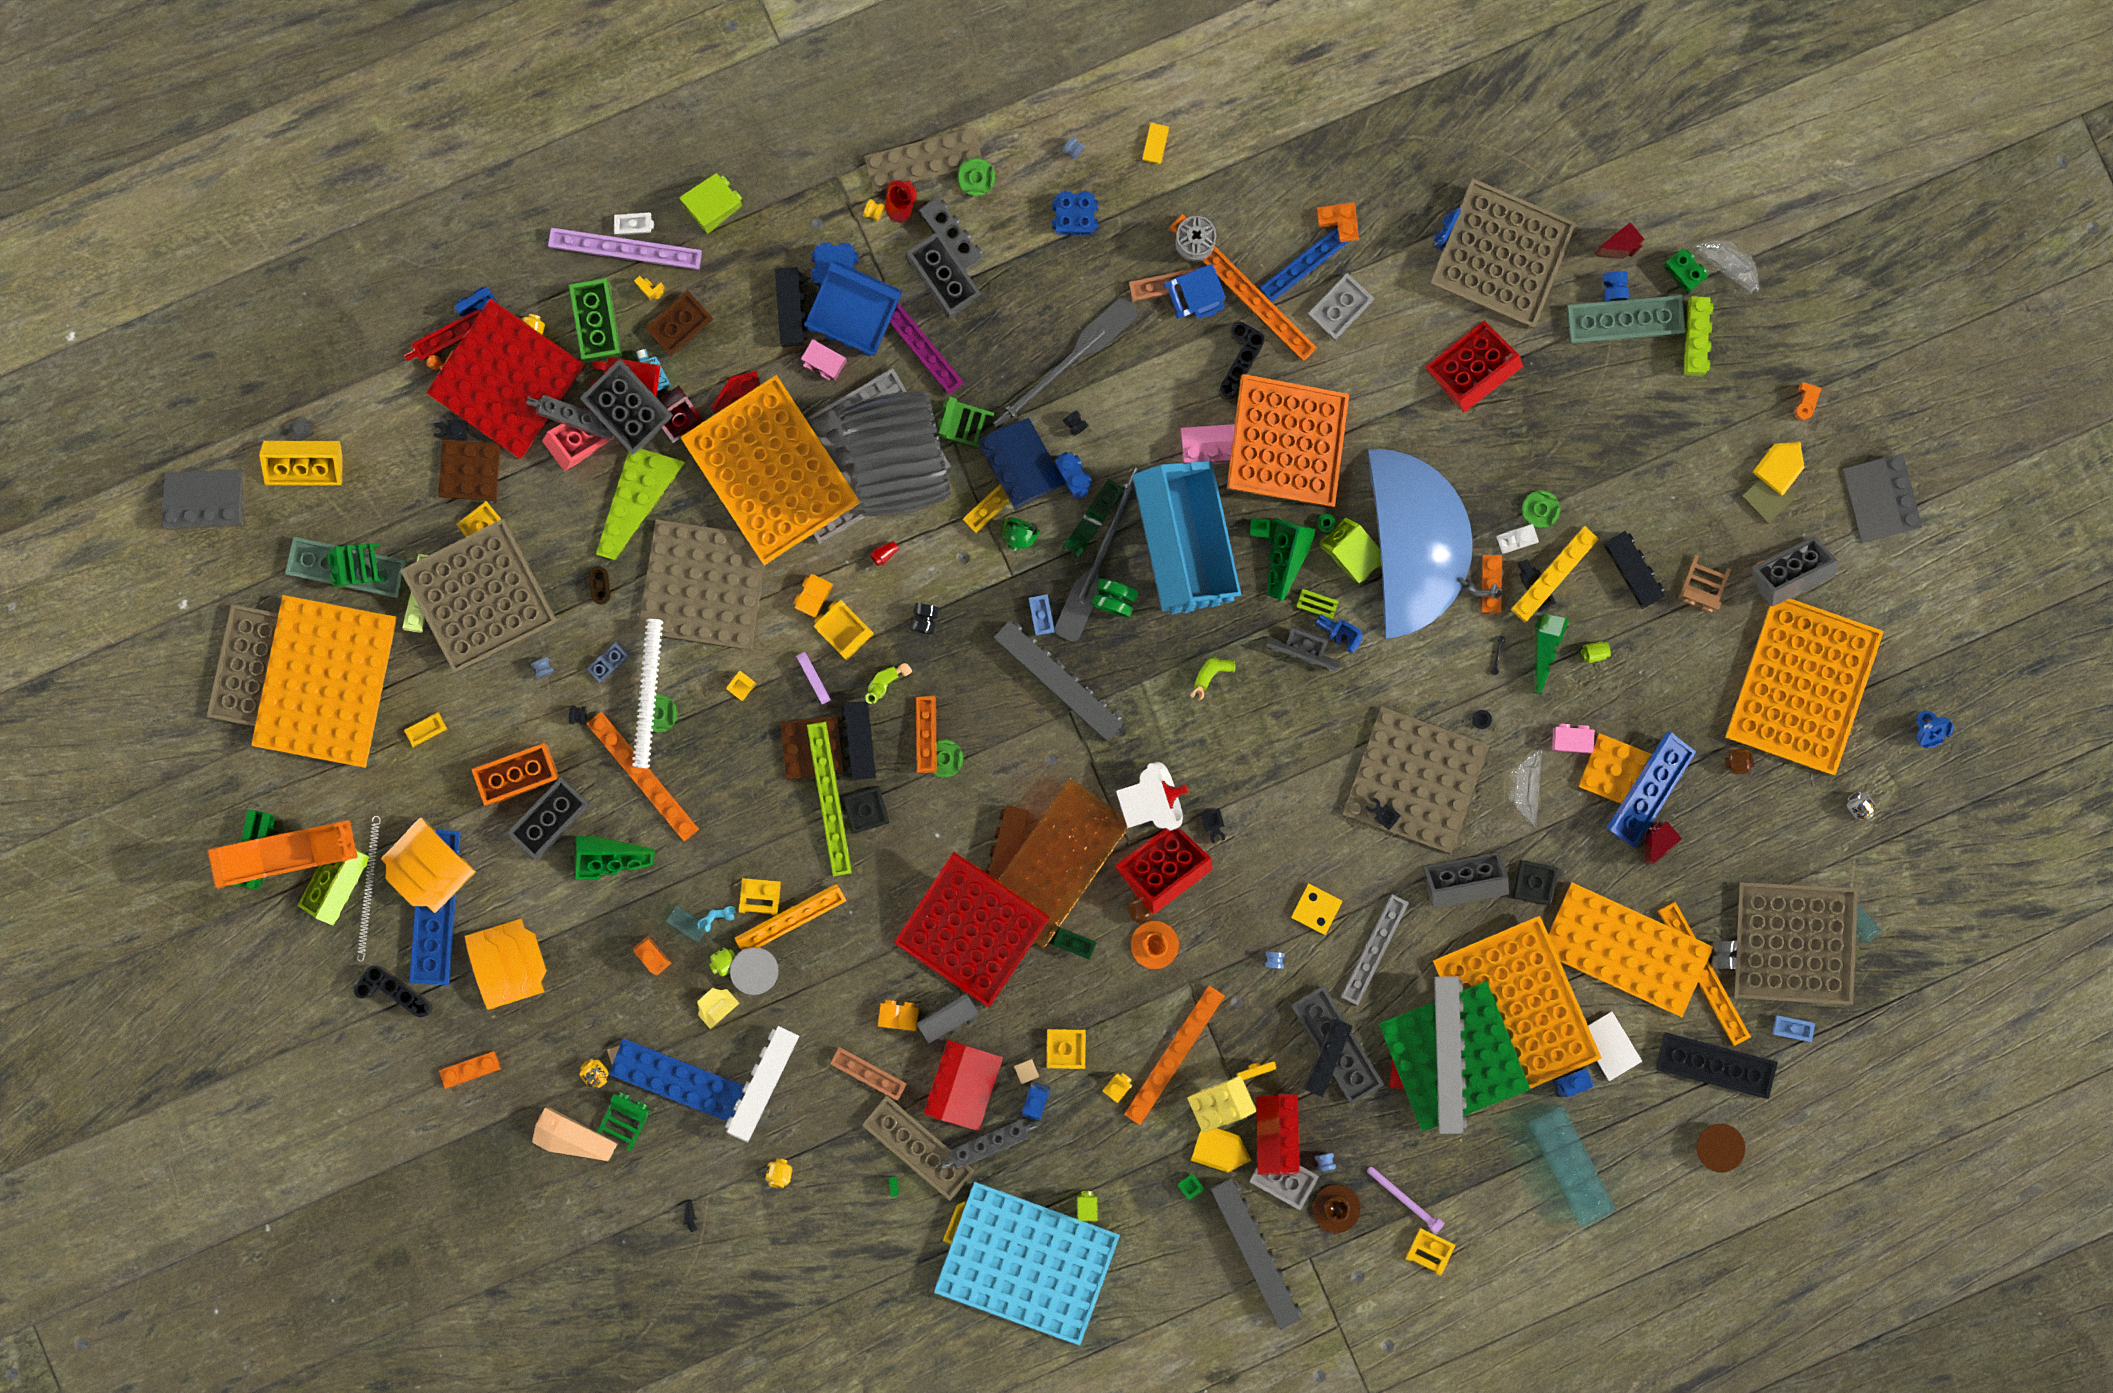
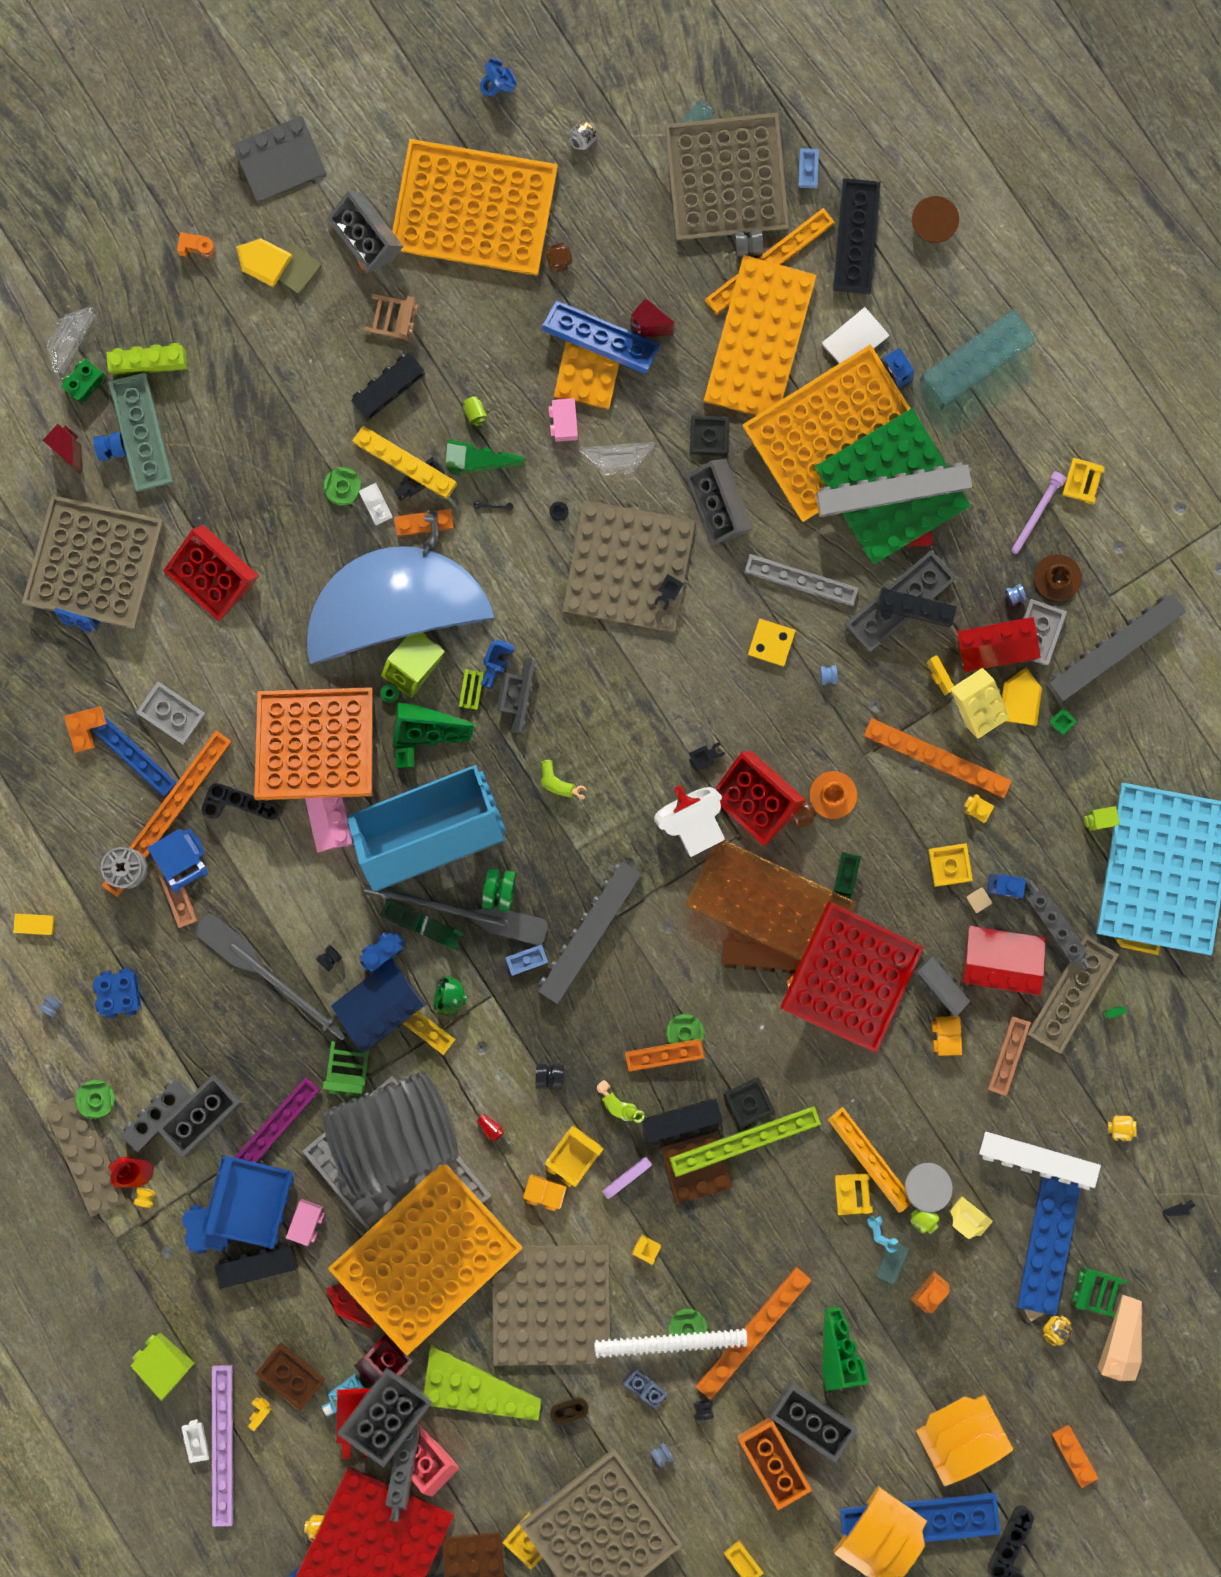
camera: 95 degrees left, 0 degrees up
(595, 320) = (300, 1463): bright green brick -> none

